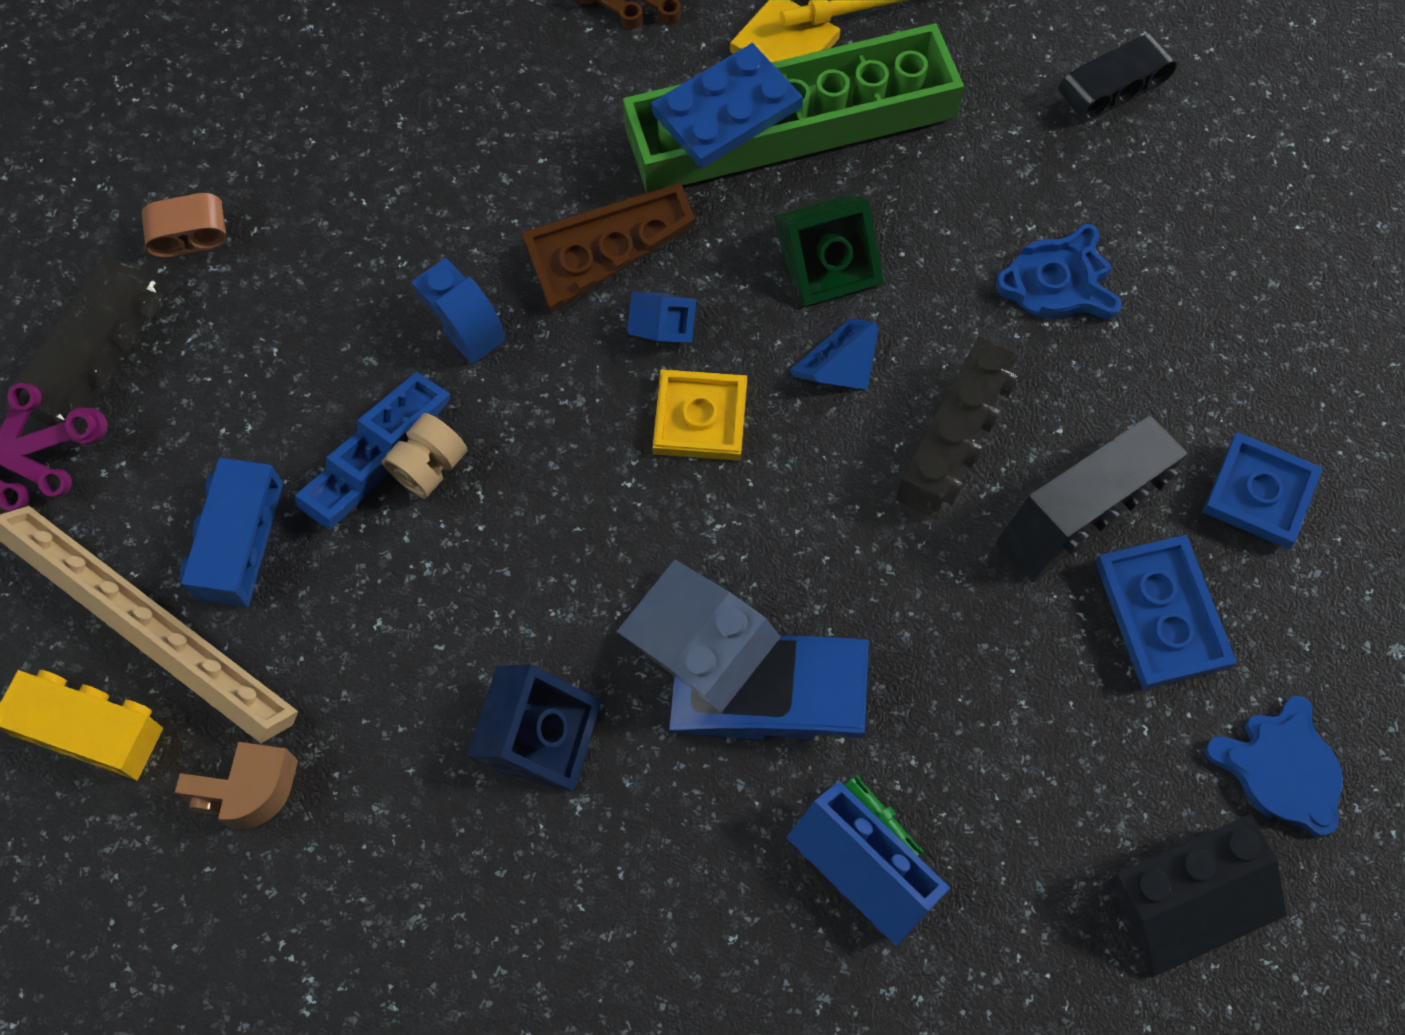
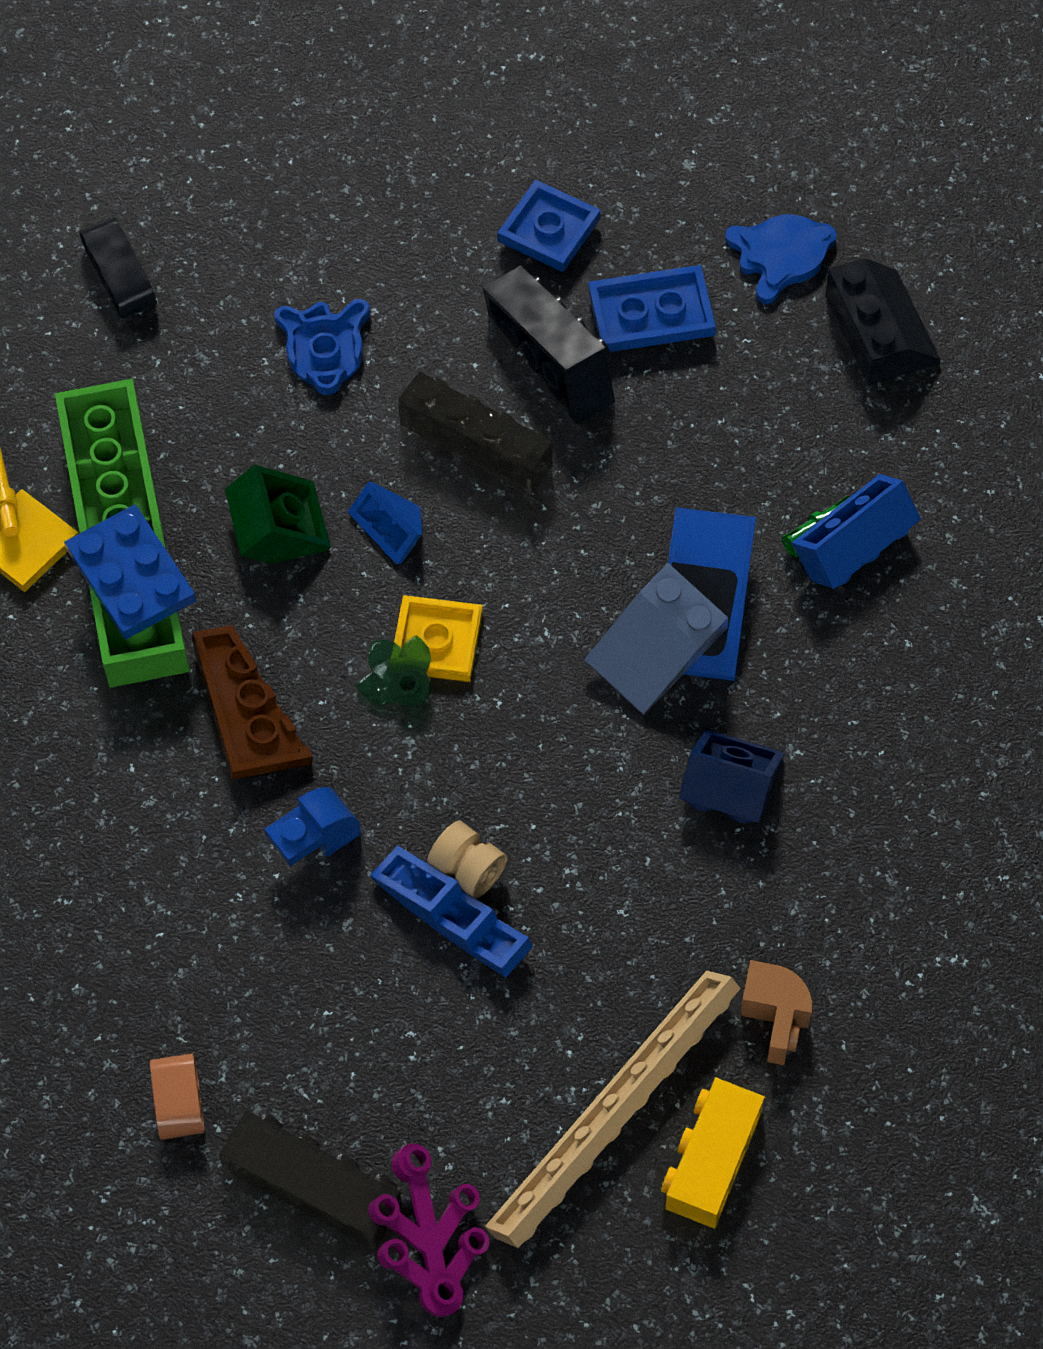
camera: 85 degrees left, 5 degrees down
(231, 532) = (530, 1029): blue brick -> none
(649, 377) = (391, 670): none -> clear green plate
(661, 317) = (335, 660): blue panel -> none

